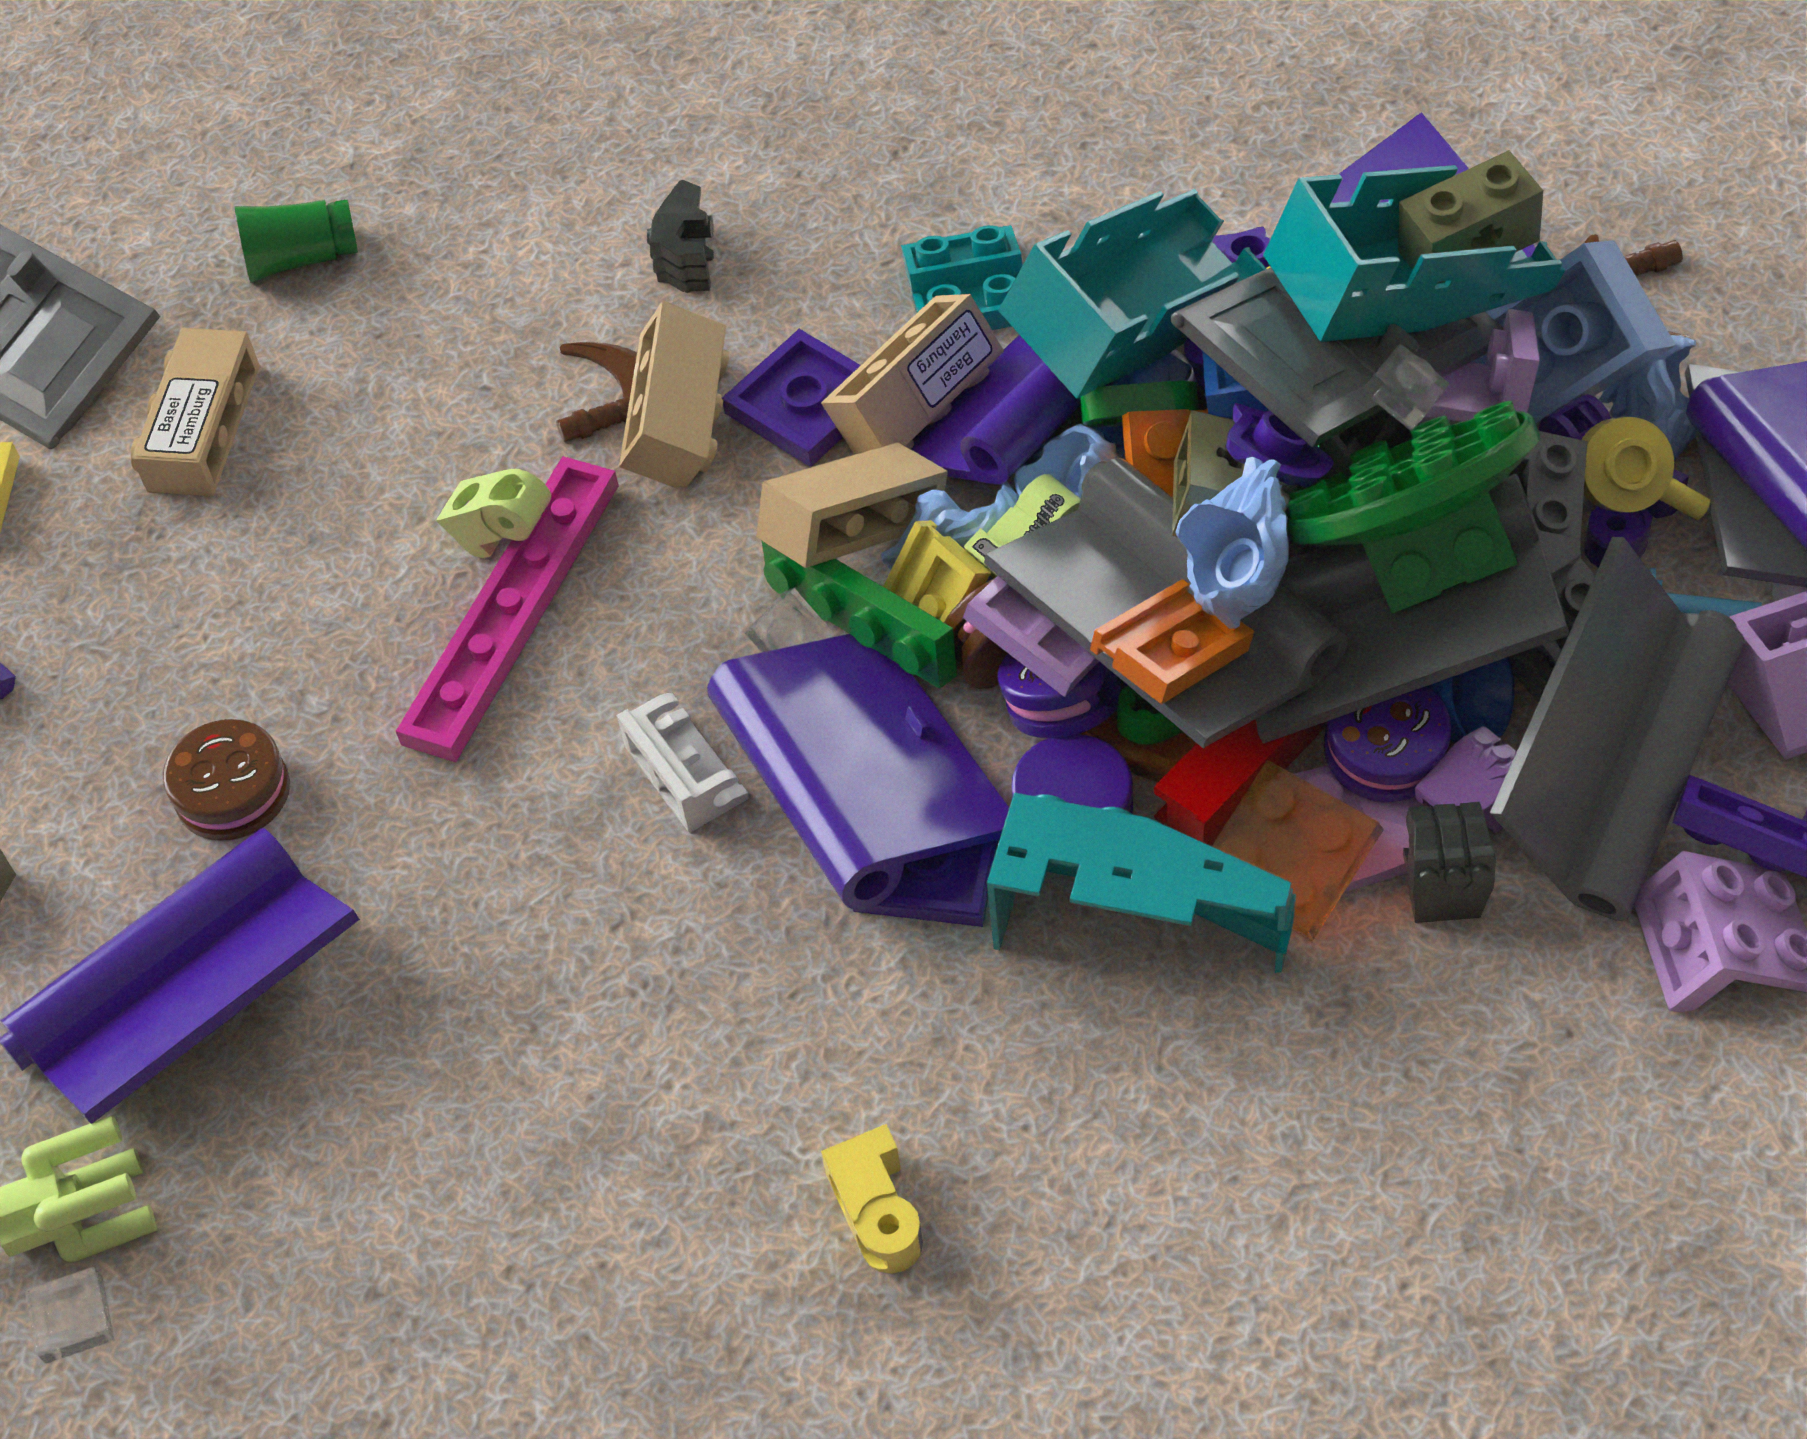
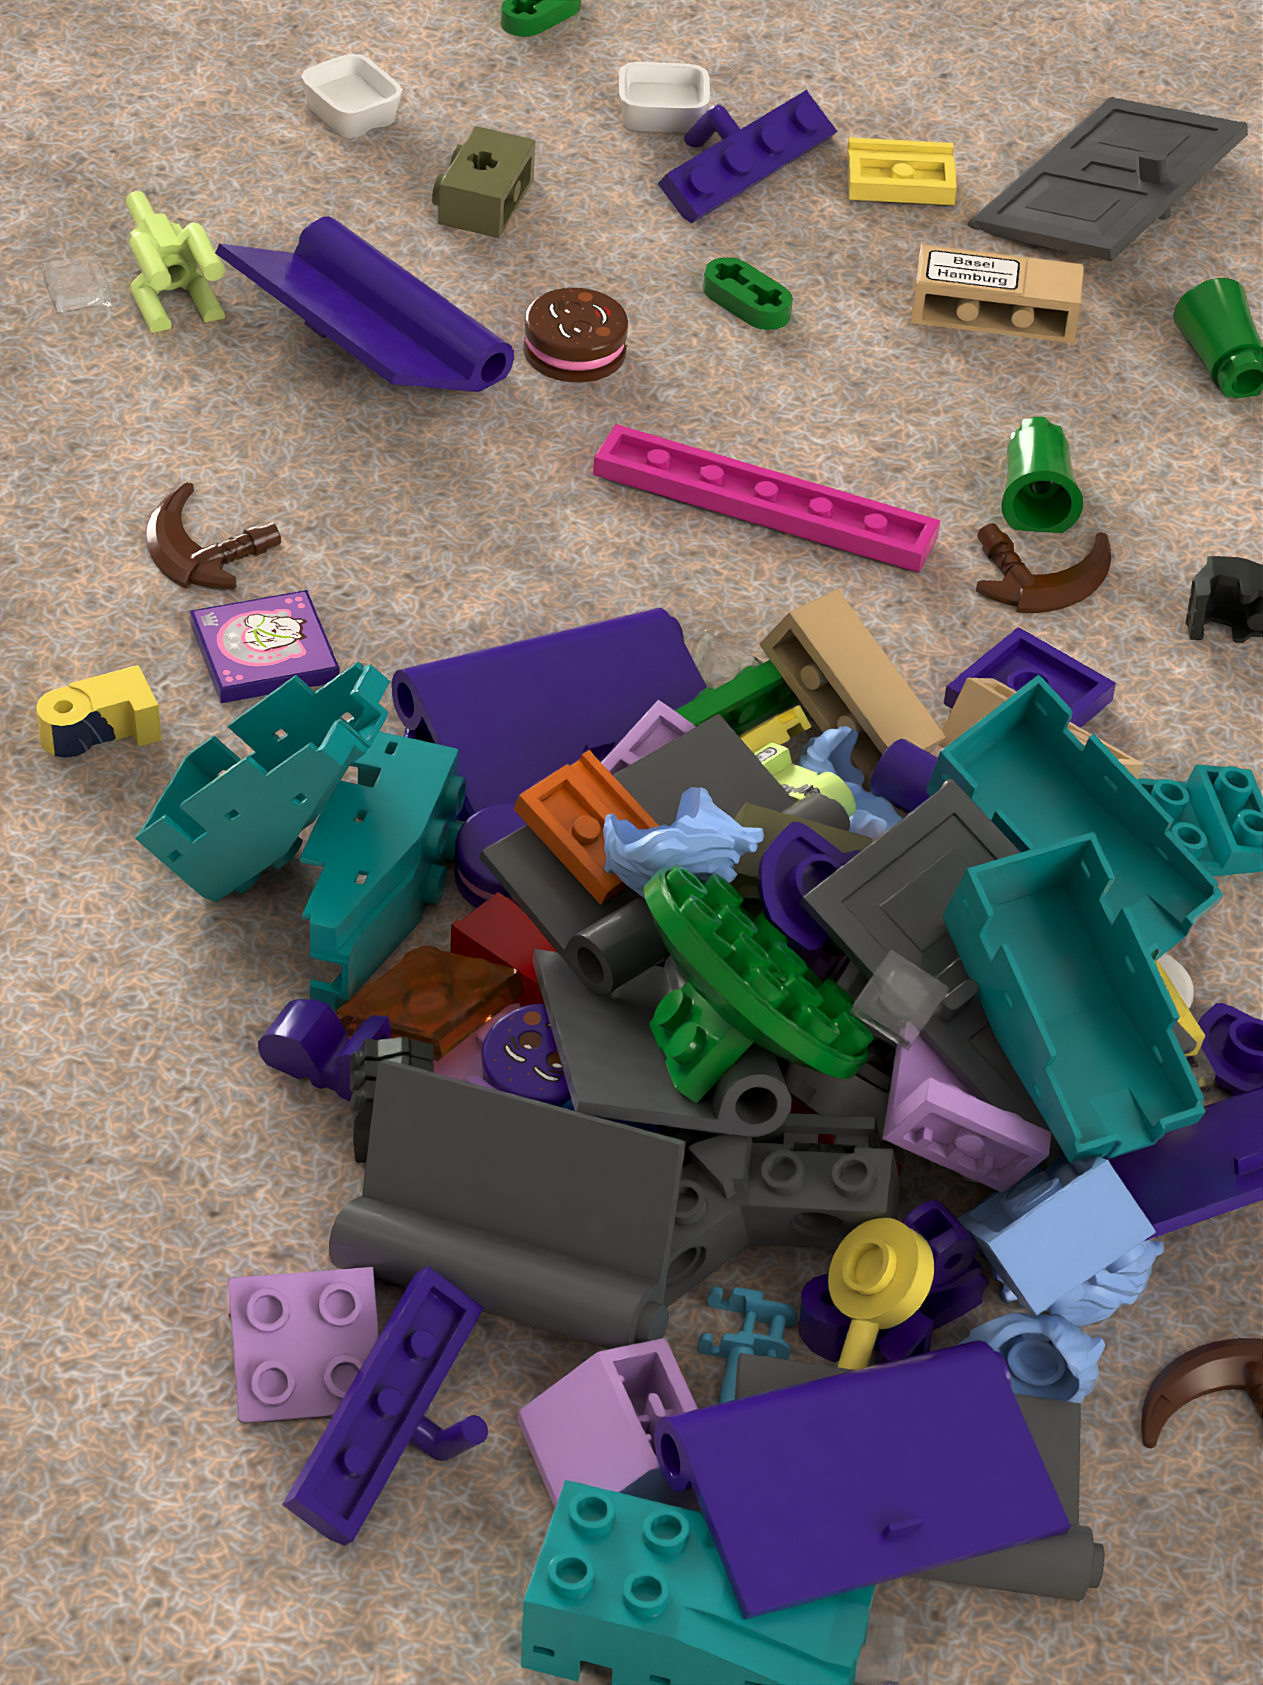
camera: 80 degrees right, 10 degrees down
(158, 630) = (747, 293): none -> green beam
(493, 379) = (1040, 479): none -> green plant
(499, 507) = (859, 466): yellowish green leg -> none
(582, 1158) = (188, 562): none -> reddish brown piece
(675, 397) = (1015, 588): tan brick -> none
(680, 762) = (572, 593): white hinge -> none
(741, 1054) = (263, 644): none -> tile
(1076, 952) = (236, 824): none -> teal piece
(1359, 943) = (314, 1044): none -> dark purple leg
(1473, 210) = (1116, 1043): olive brick -> none

